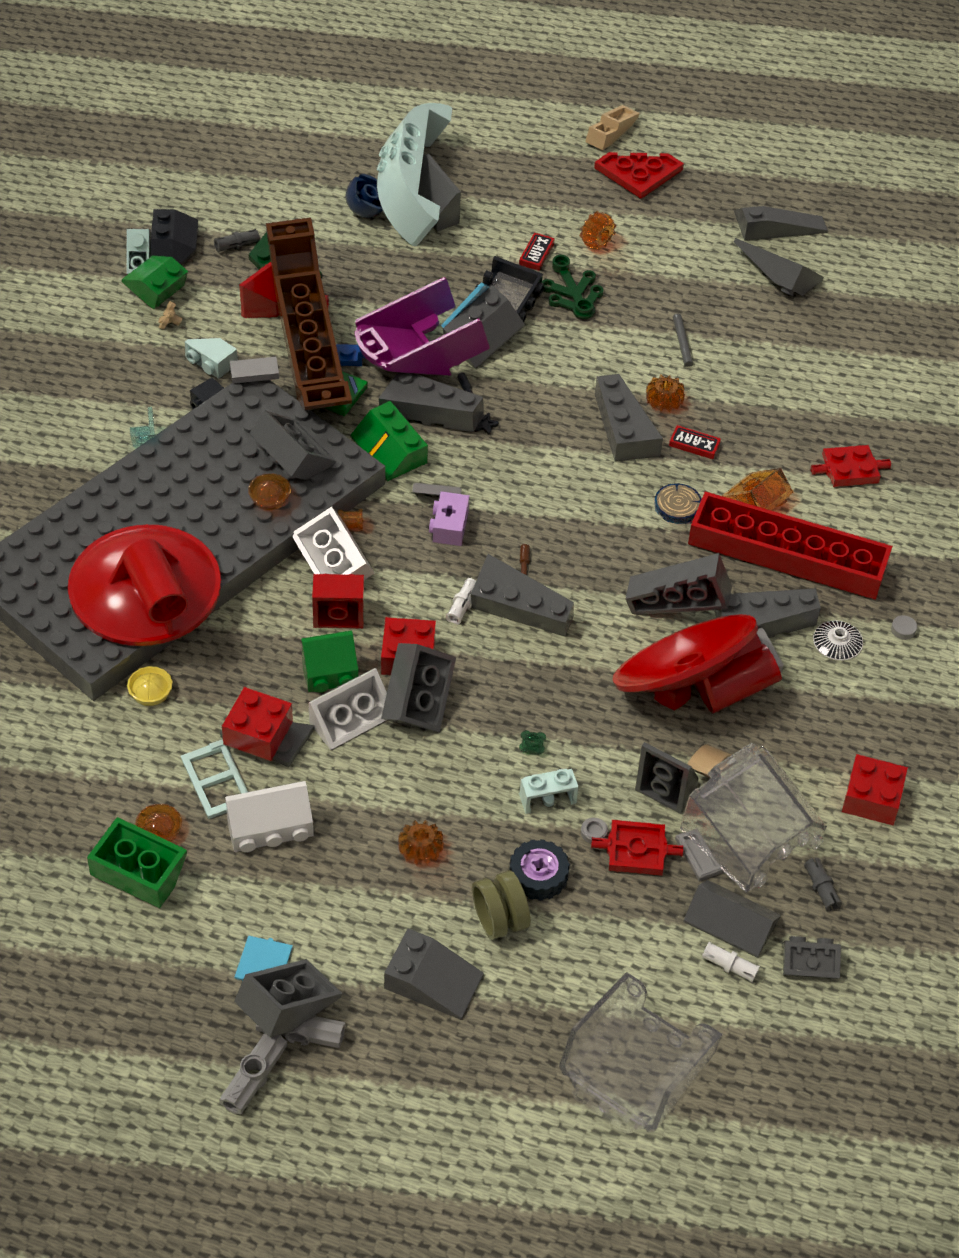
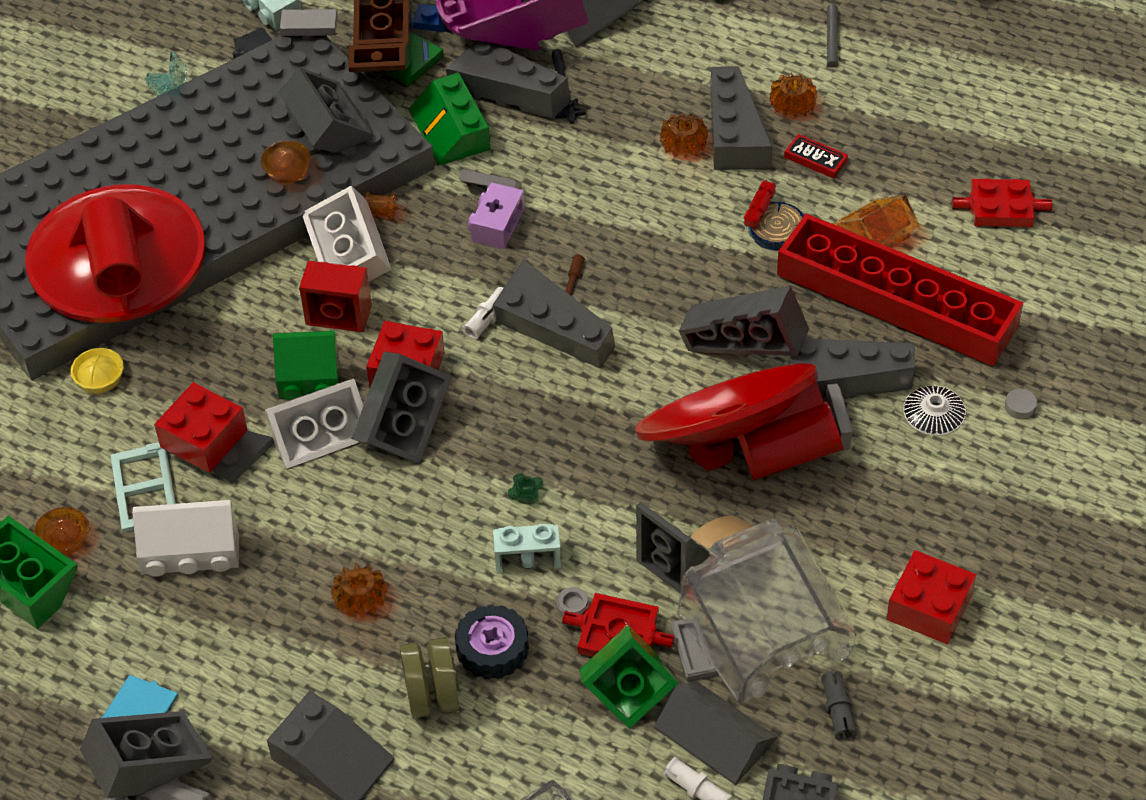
camera: 15 degrees right, 0 degrees up
(585, 435) = (683, 135): none -> clear orange gear
(657, 883) = (627, 676): none -> green slope
(662, 487) = (759, 204): none -> red axle

